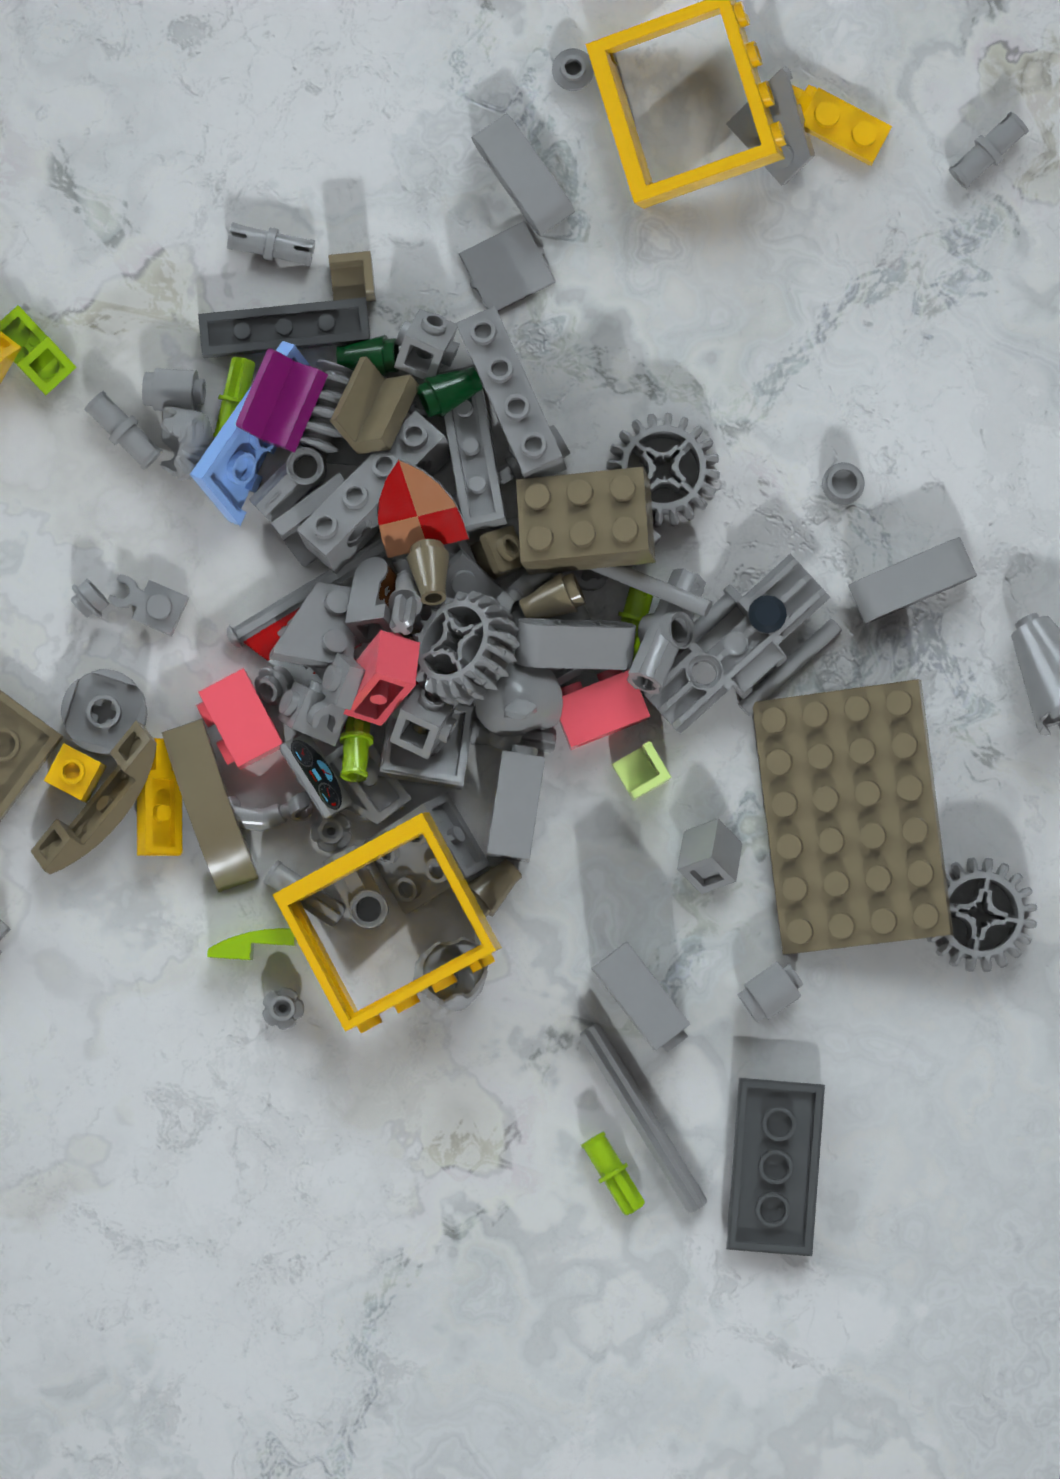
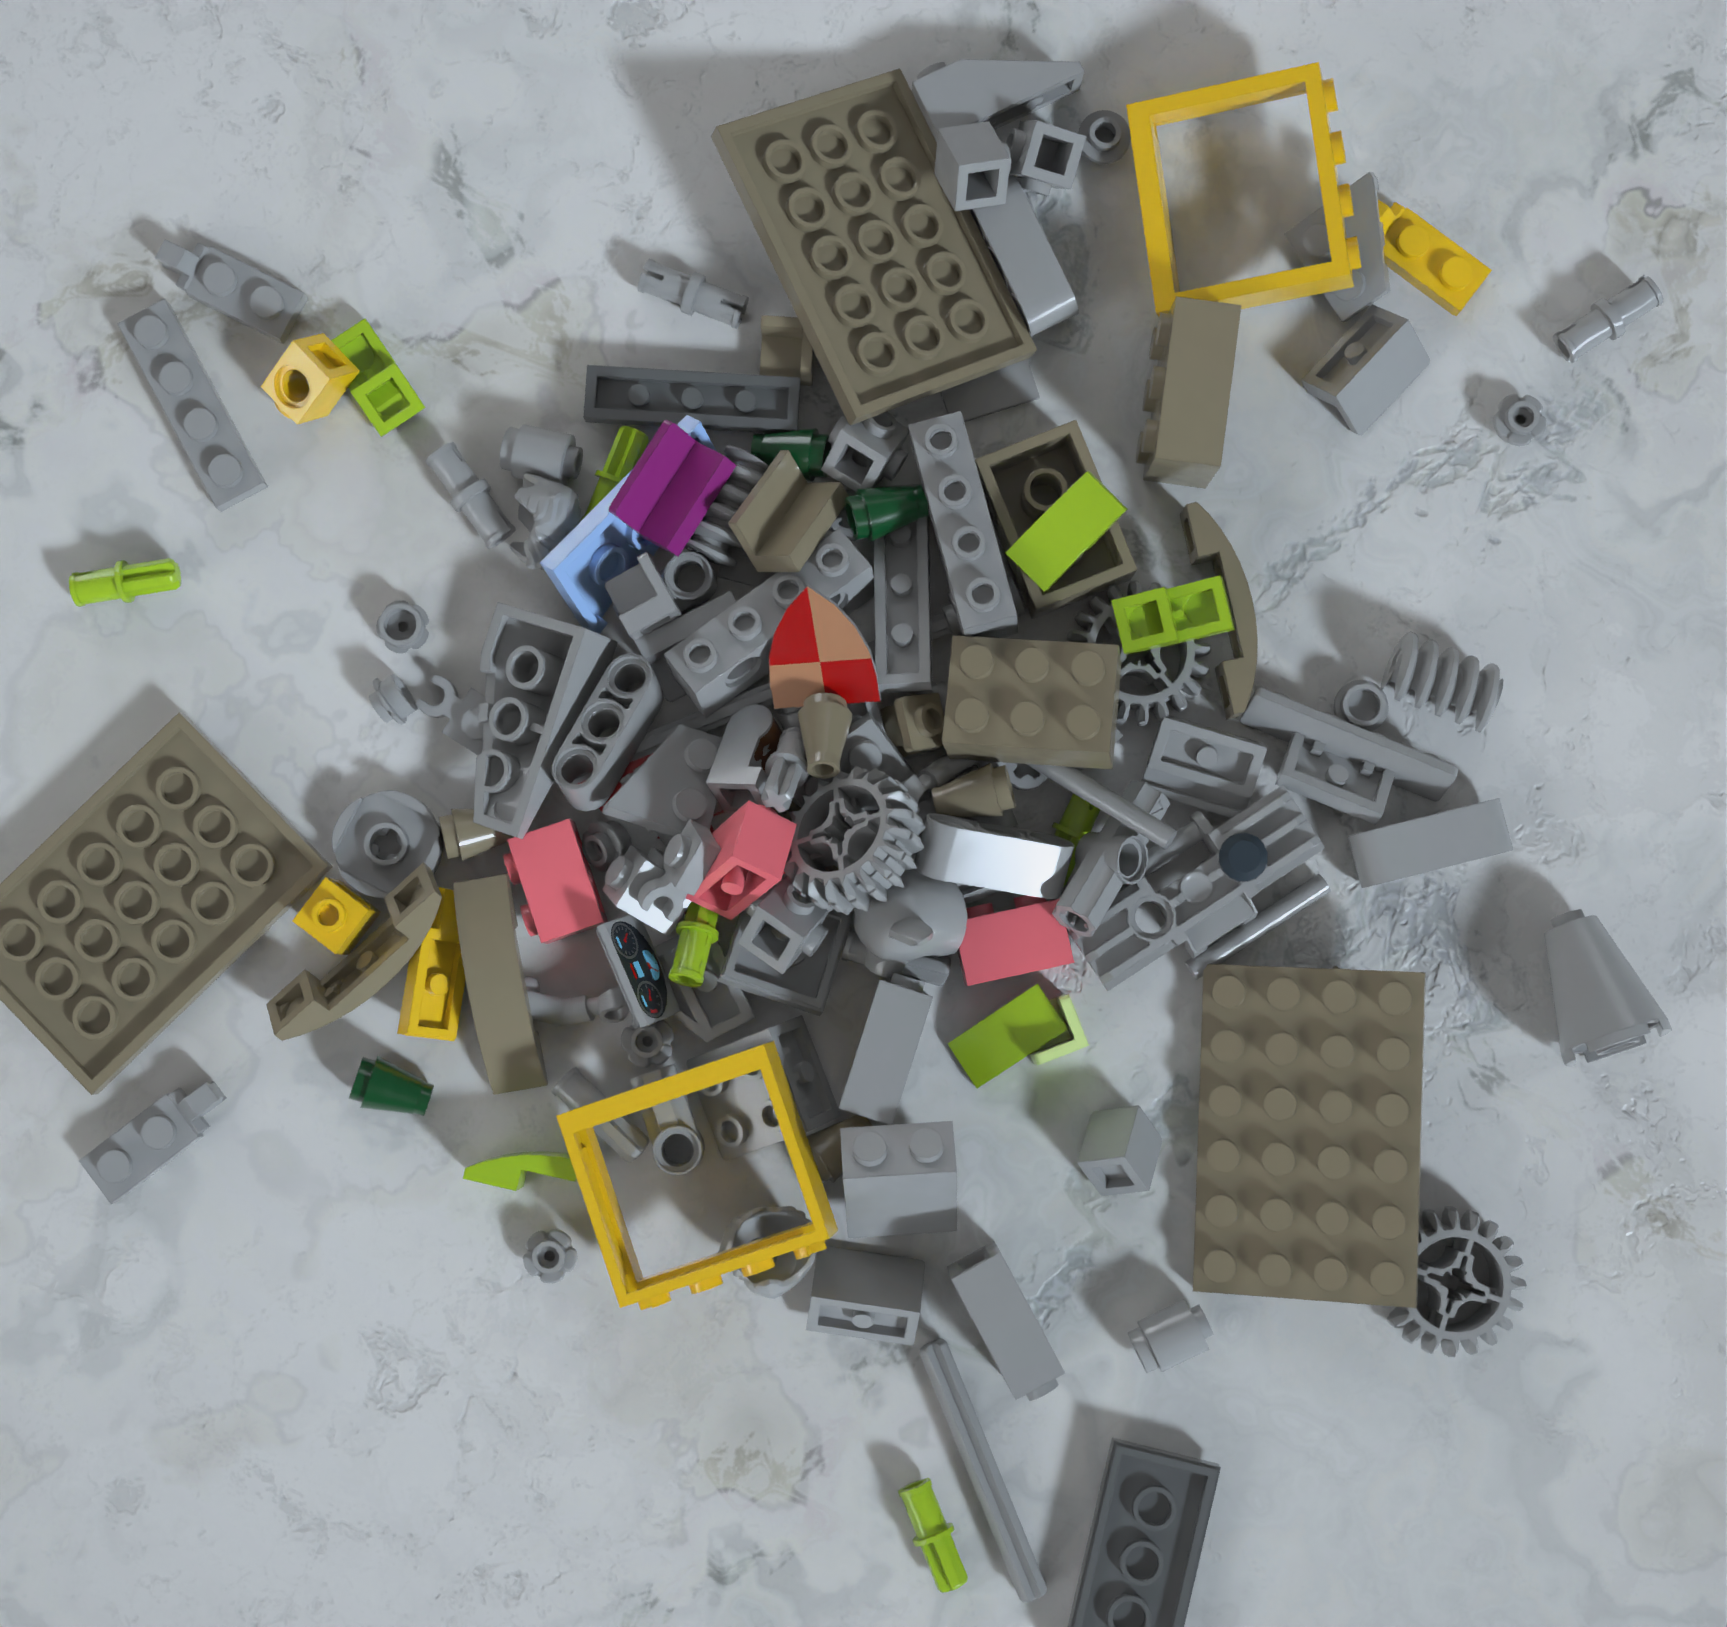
camera: 10 degrees right, 0 degrees up
(84, 530) = (393, 616): none -> light grey plate
(137, 899) = (390, 1088): none -> dark green cone
(172, 690) = (466, 838): none -> dark tan cone
(202, 582) = (534, 693): none -> light grey wedge
(259, 579) = (611, 755): none -> light grey beam
(272, 489) = (642, 598): none -> light grey panel
(407, 185) = (870, 246): none -> dark tan plate
(471, 53) = (991, 90): none -> light grey slope
(473, 112) = (972, 166): none -> light grey brick
(527, 94) = (1044, 156): none -> light grey brick
(531, 999) = (866, 1295): none -> light grey panel
(542, 902) = (899, 1179): none -> light grey brick
(580, 377) = (1022, 486): none -> dark tan brick
(590, 385) = (1066, 530): none -> lime slope
(608, 782) = (1007, 1036): none -> lime slope
(668, 262) = (1188, 392): none -> dark tan brick
(683, 436) = (1172, 615): none -> lime slope
(702, 377) = (1205, 544): none -> dark tan slope
(728, 549) = (1204, 766): none -> light grey plate
(808, 218) = (1368, 367): none -> light grey panel
(832, 528) = (1342, 761): none -> light grey bracket
(903, 453) = (1444, 679): none -> light grey piece
(929, 250) = (1506, 424): none -> light grey plate

